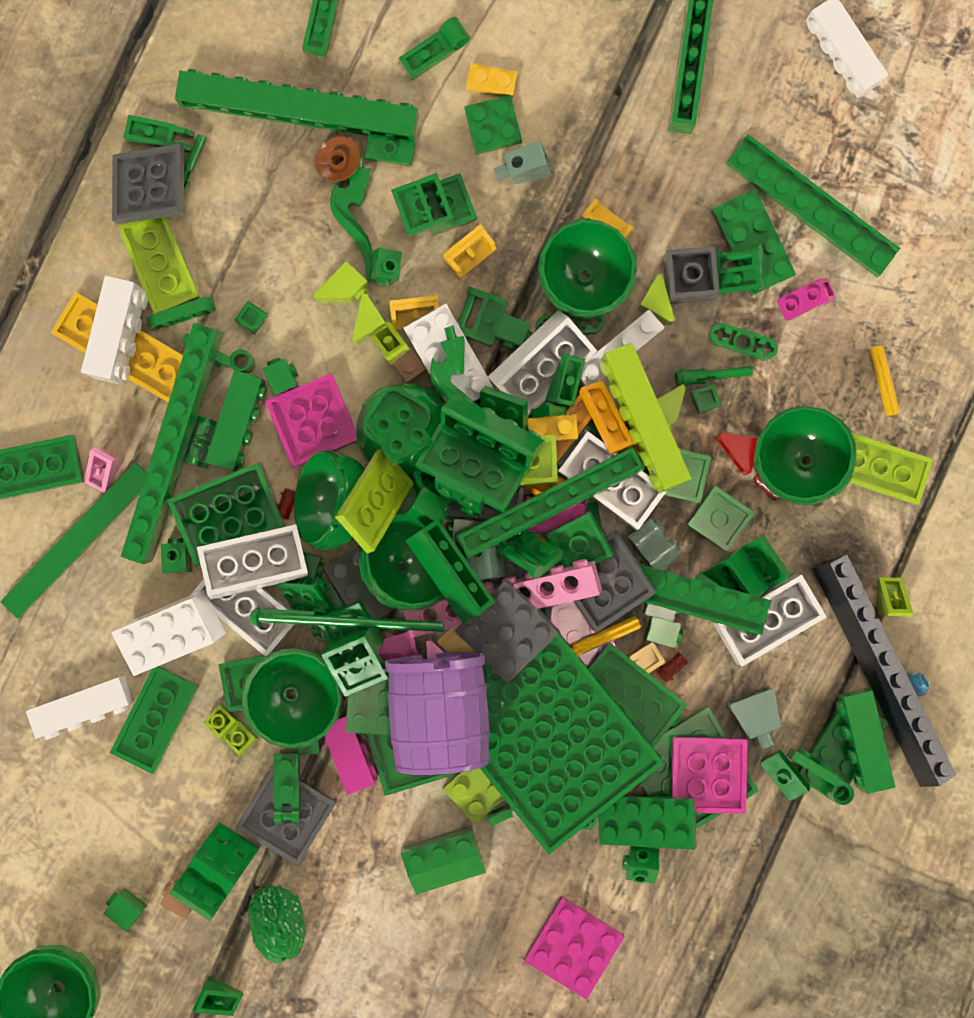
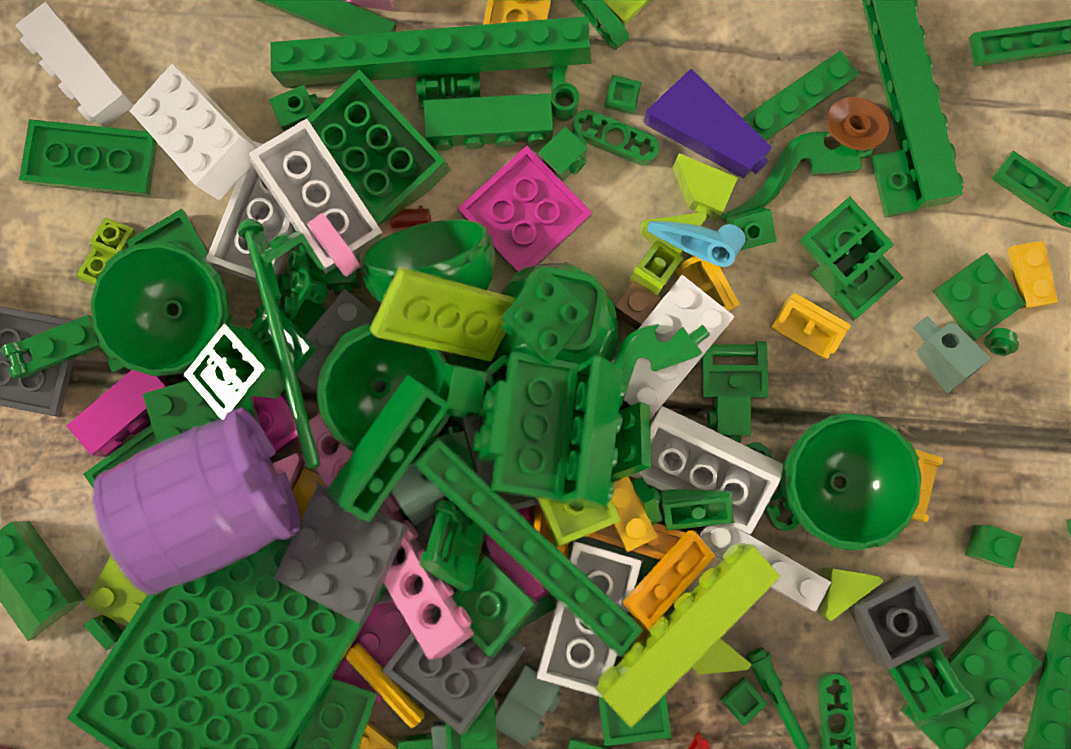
camera: 75 degrees right, 5 degrees down
(279, 592) = (283, 243): none -> green bracket
(280, 325) = (640, 137): none -> green beam
(295, 559) = (333, 244): none -> bright pink beam
(298, 266) = (707, 125): none -> dark purple slope
(302, 192) = (802, 96): none -> green plate
(387, 300) = (707, 244): none -> medium azure piece
(530, 123) = (1002, 341): none -> green plate
(666, 188) = (993, 546): none -> green brick

